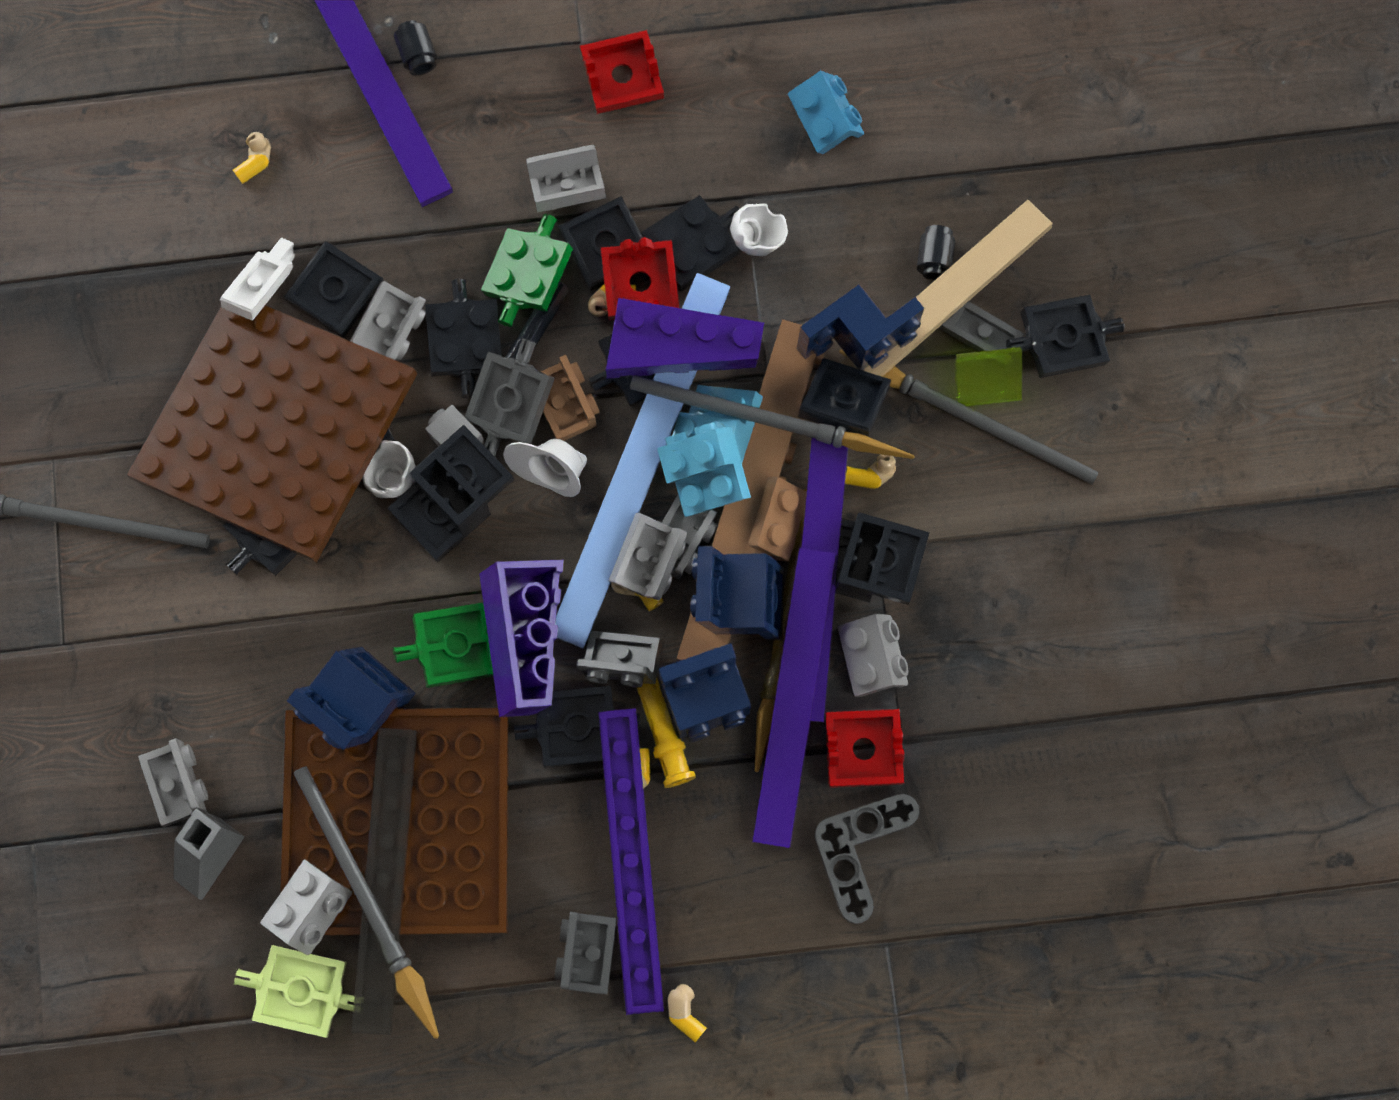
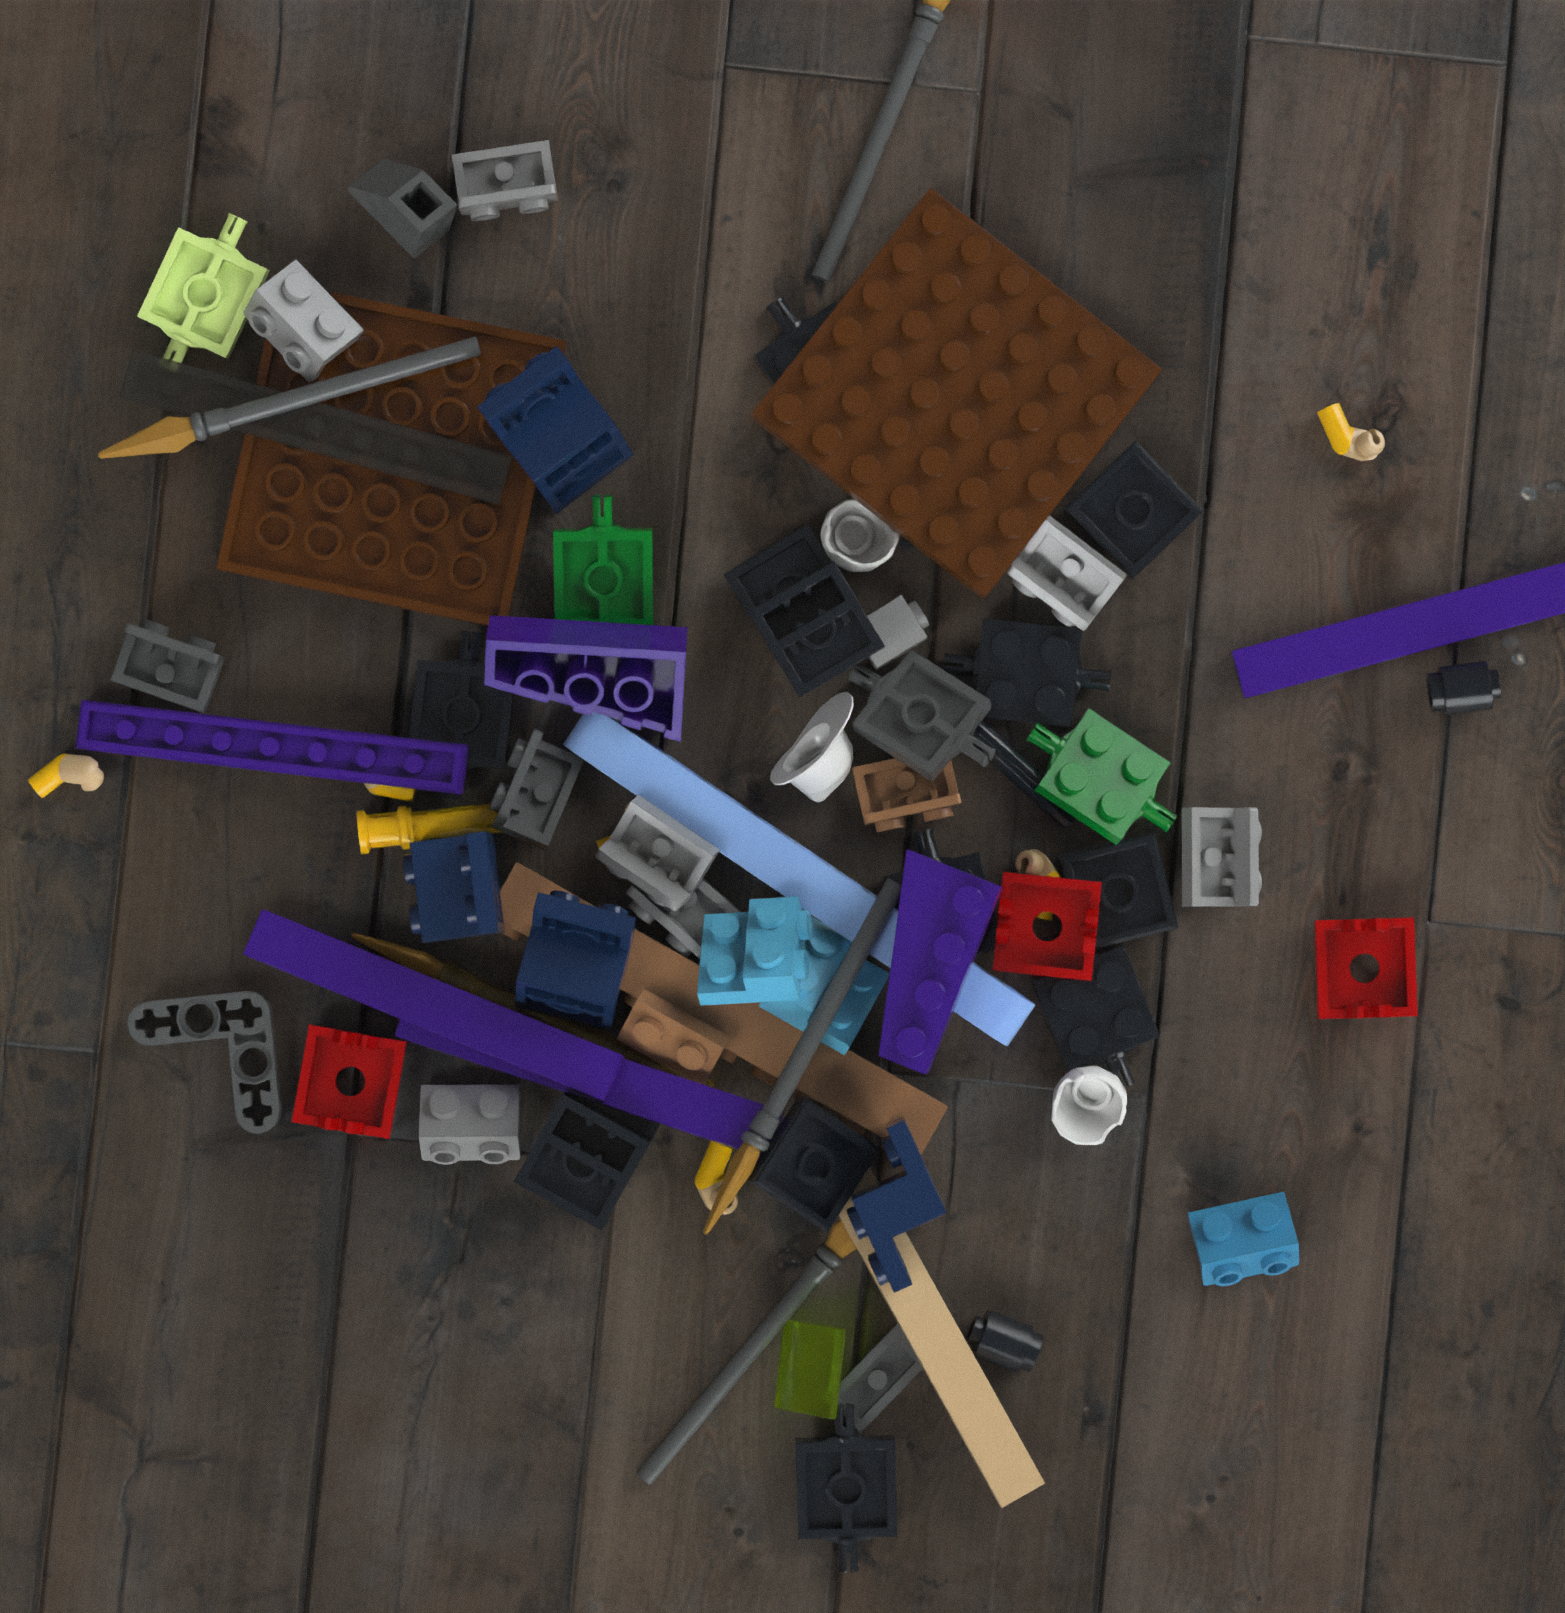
camera: 105 degrees right, 10 degrees up
(259, 280) = (1161, 411): white hinge -> none

